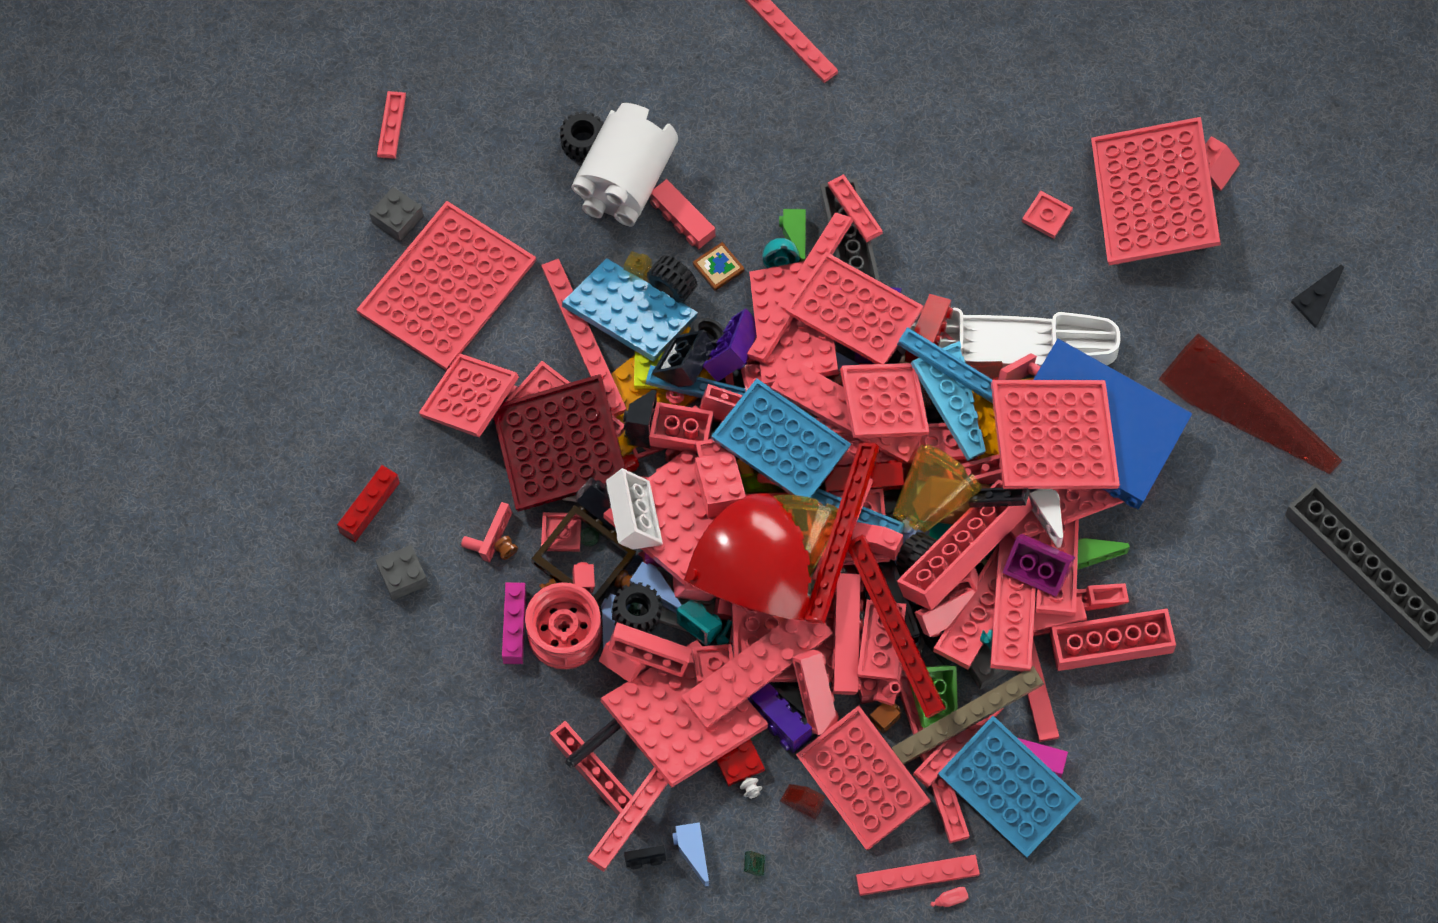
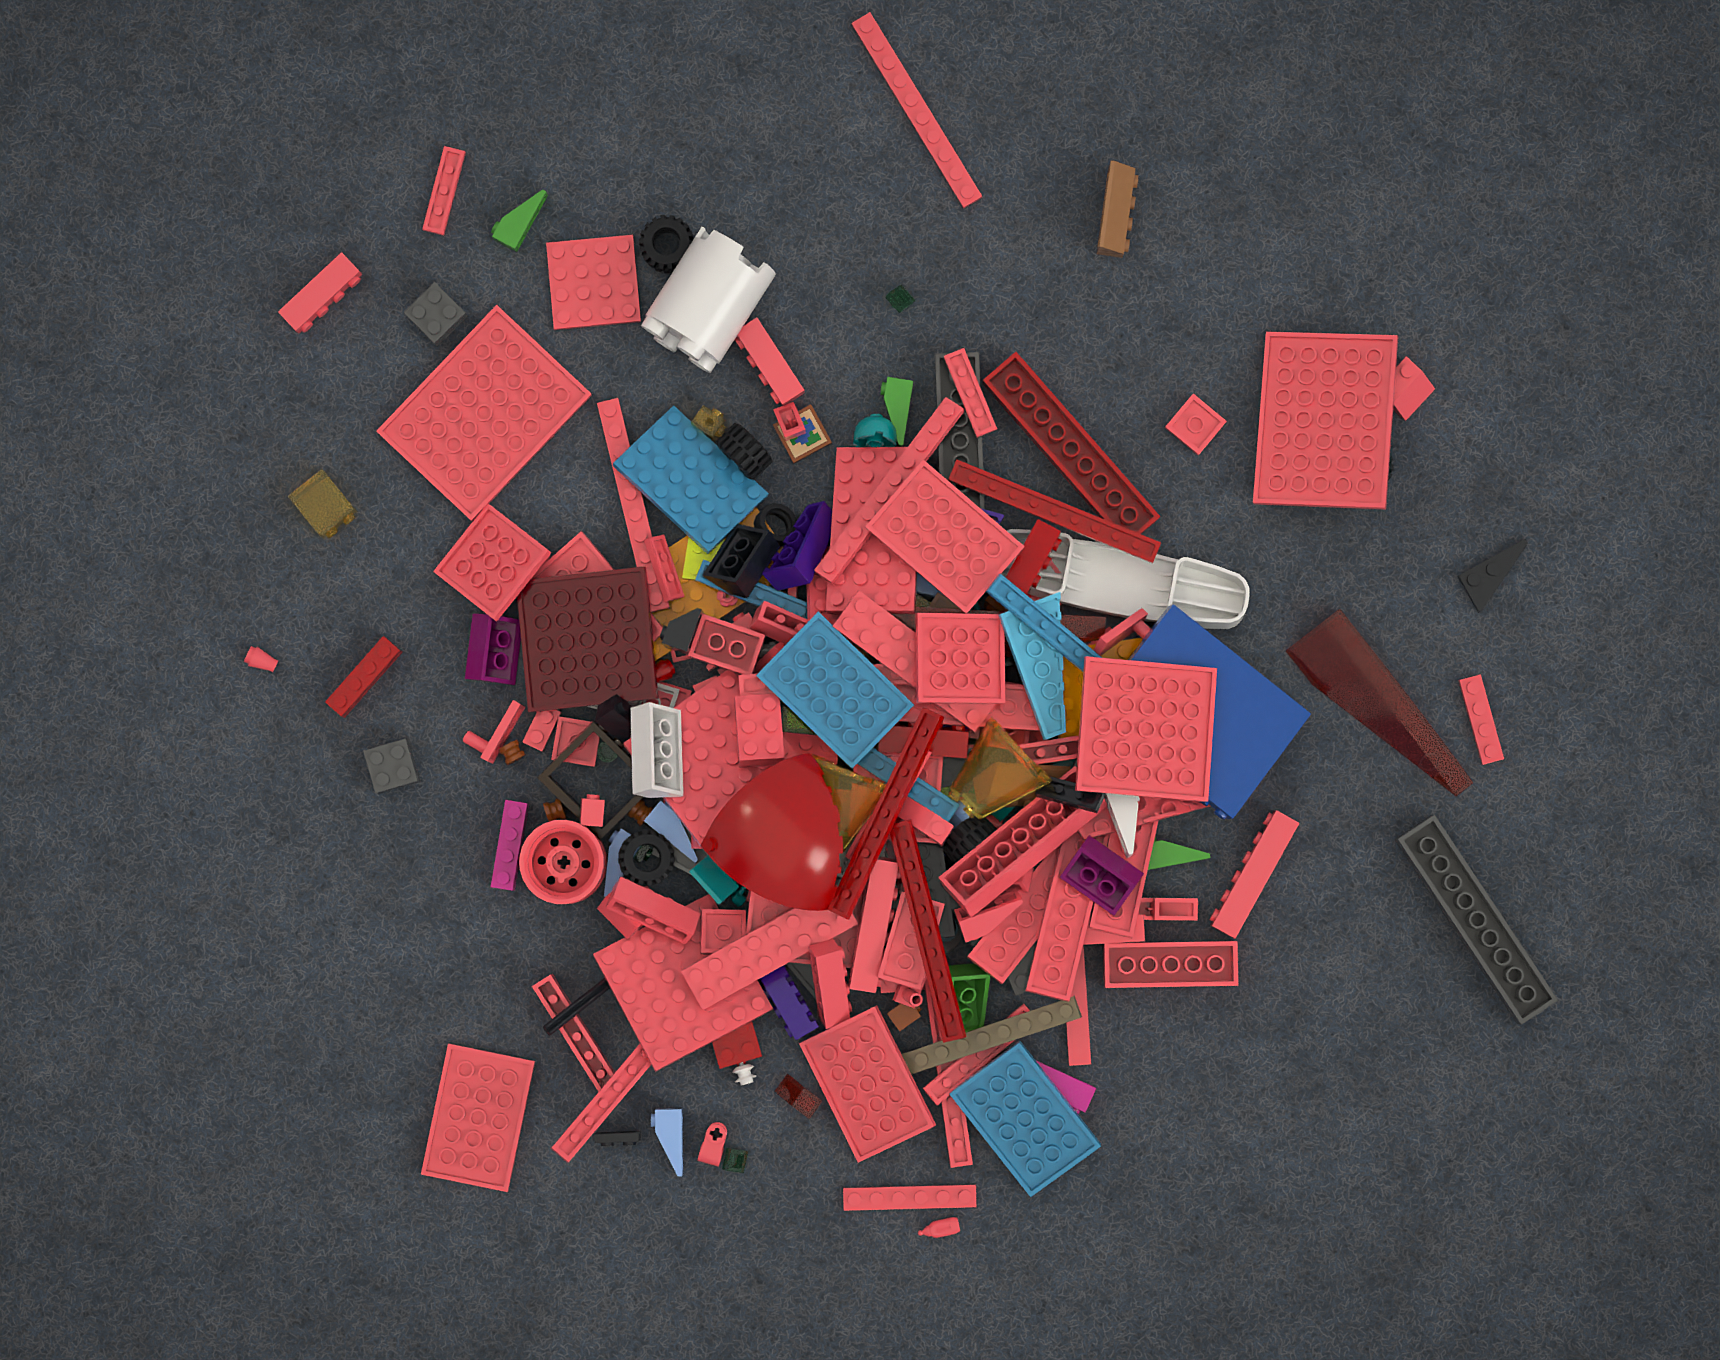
camera: 10 degrees right, 20 degrees up
(276, 503) = (259, 659): none -> coral cone
(297, 212) = (320, 293): none -> coral brick
(317, 372) = (323, 504): none -> clear yellow panel
(456, 137) = (516, 224): none -> bright green slope
(478, 466) = (493, 649): none -> magenta slope
(515, 860) = (478, 1117): none -> coral plate
(525, 176) = (593, 282): none -> coral plate
(529, 526) = (541, 729): none -> coral plate
(617, 379) = (664, 568): none -> coral tile
(708, 256) = (789, 421): none -> coral slope
(732, 854) = (712, 1147): none -> coral piece
(783, 153) = (900, 298): none -> clear green plate
(947, 245) = (1068, 446): none -> red brick
(947, 287) = (1054, 511): none -> red plate
(950, 63) = (1116, 209): none -> medium nougat slope
(987, 638) = (1028, 952): teal hand -> none
(1170, 557) = (1254, 874): none -> coral brick
(1337, 409) = (1481, 719): none -> coral plate

